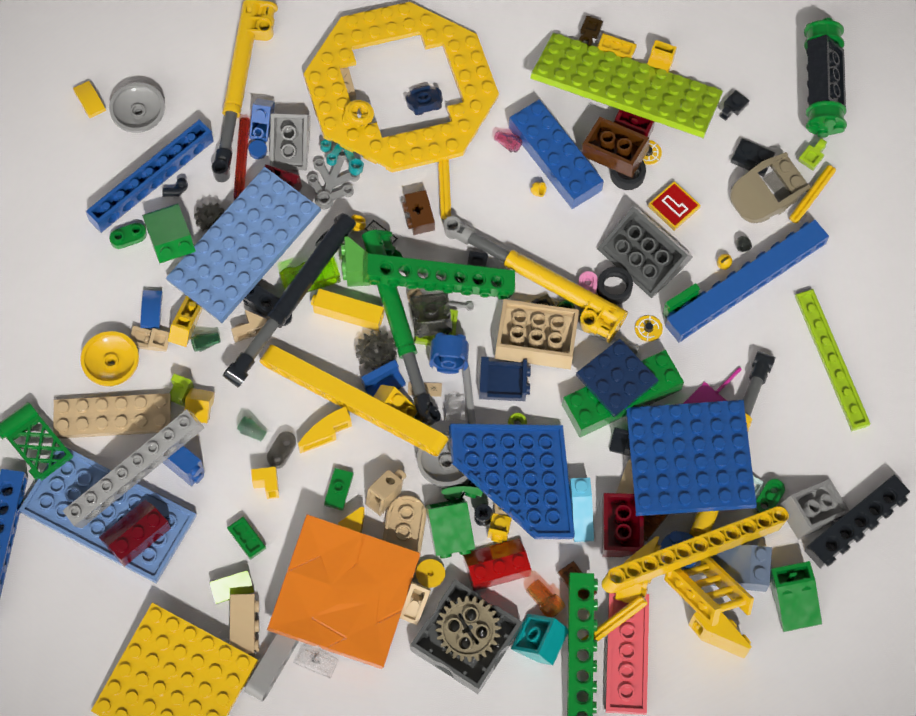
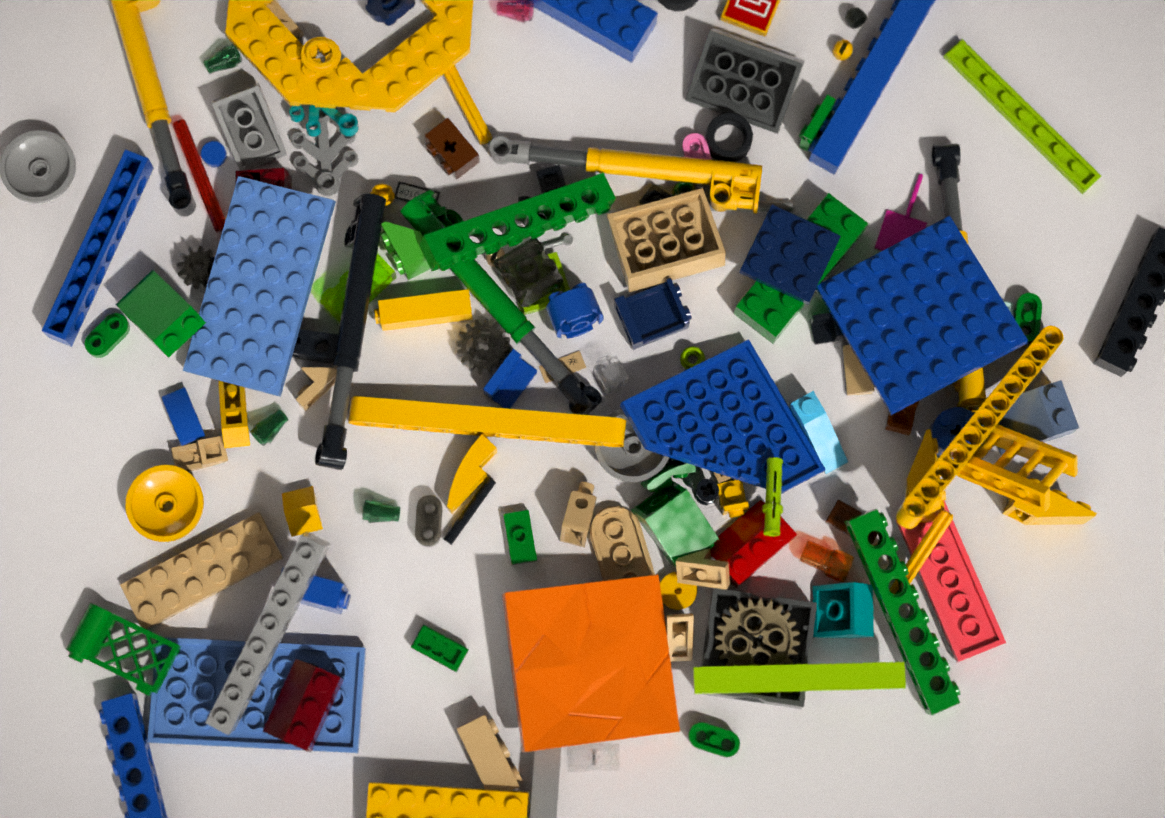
camera: 25 degrees left, 10 degrees up
(177, 190) = (140, 249): black arm -> none
(180, 389) = (269, 502): lime panel -> none
(231, 585) = (451, 716): slope -> none
(261, 119) = (200, 113): slope -> none
(267, 479) = (430, 564): yellow piece -> none
(295, 91) = (224, 59): none -> clear green cone
(313, 456) = (469, 511): none -> black bar
(354, 520) = (559, 572): yellow slope -> none
(395, 399) = (536, 399): yellow slope -> none
(406, 686) = (713, 740): none -> green plate
(452, 564) = (702, 571): none -> tan slope
(469, 396) = (622, 356): light grey bar -> none
(484, 666) = (799, 677): none -> lime tile
(515, 552) = (773, 499): none -> lime pin
(538, 189) = (581, 55): yellow hinge -> none
(620, 526) = (874, 433): dark red slope -> none
(648, 328) = (791, 172): yellow piece -> none
(795, 596) = (1112, 425): green slope -> none
(814, 508) = (1085, 309): light grey slope -> none

